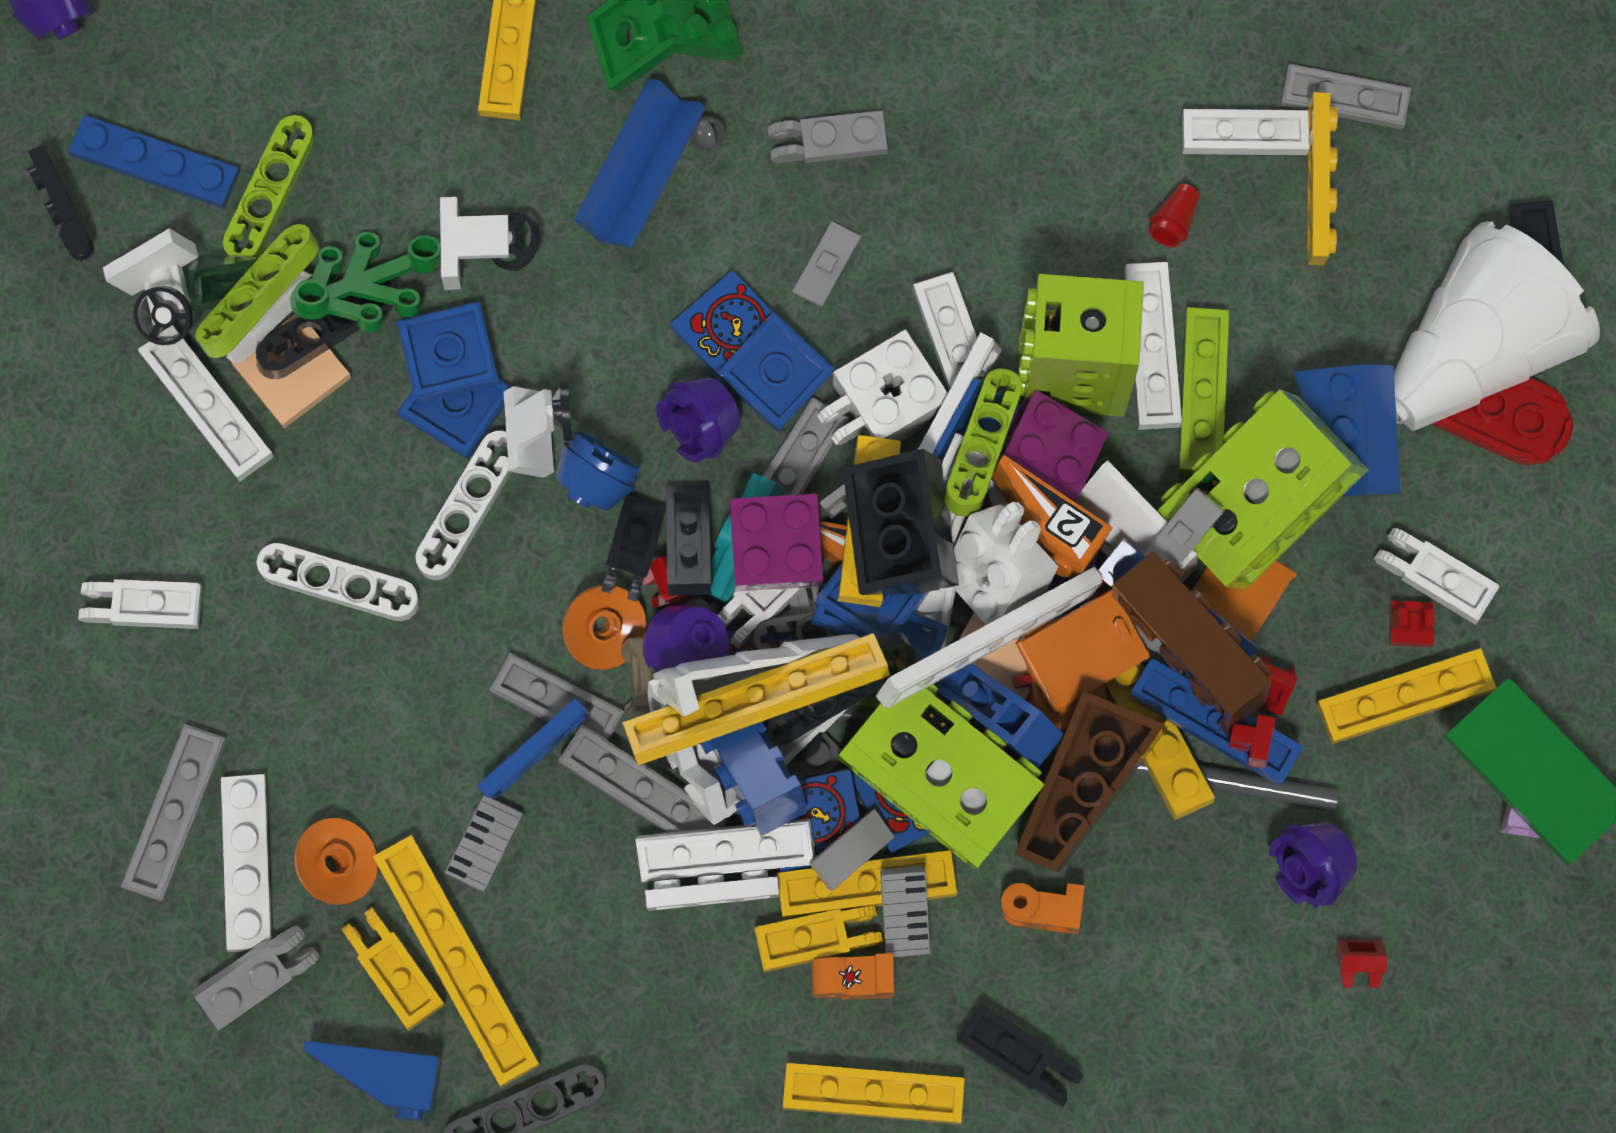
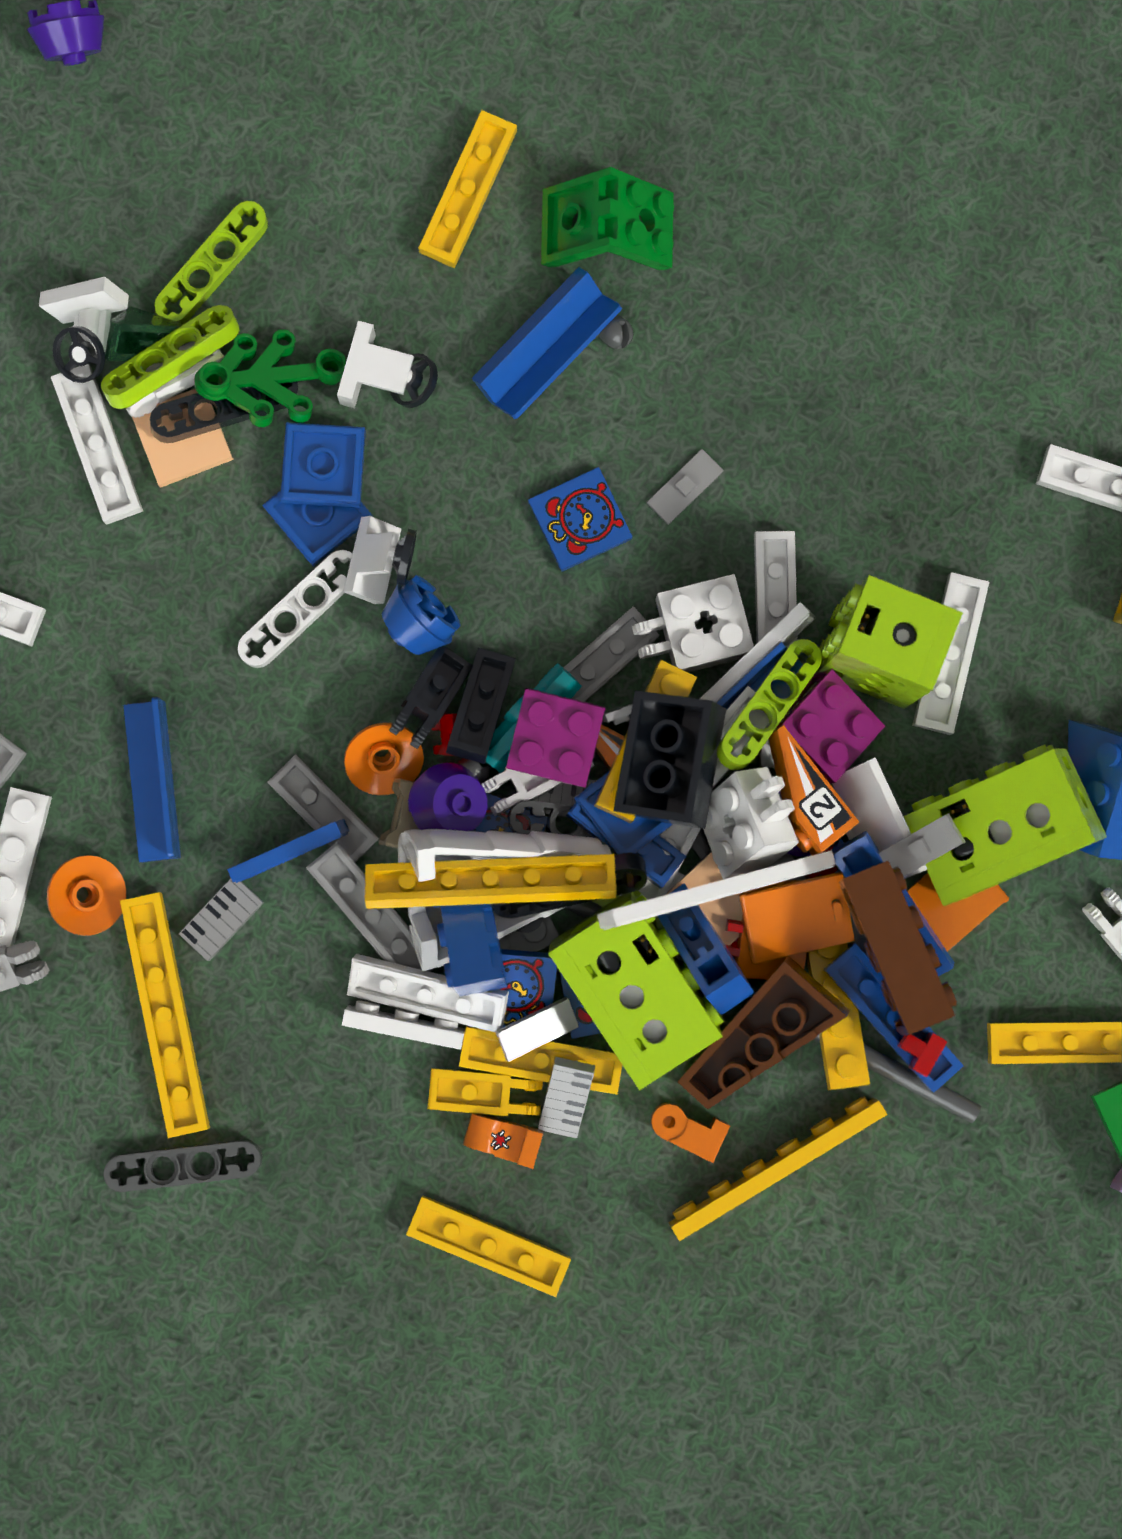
camera: 10 degrees right, 10 degrees up
(60, 207) = (22, 222): black hinge -> none
(154, 161) = (118, 205): blue plate -> none
(340, 576) = (163, 645): white beam -> none
(367, 727) = (152, 781): none -> blue panel
(392, 1078) = (73, 1100): blue slope -> none
(395, 973) = (108, 1007): yellow hinge -> none
(699, 416) = (527, 596): dark purple cone -> none
(775, 371) = (607, 572): blue tile -> none
(831, 137) = (727, 371): light grey hinge -> none
(1015, 1053) = (622, 1249): black hinge -> none
(1134, 929) = (762, 1175): none -> yellow plate
(1174, 218) = (1009, 541): red cone -> none
(1203, 385) = (982, 708): lime plate -> none
(1281, 687) = (965, 996): red tile -> none
(1314, 862) = (938, 1169): dark purple cone -> none
(1361, 956) = (951, 1263): red tile -> none
(1411, 623) = (1095, 977): red tile -> none

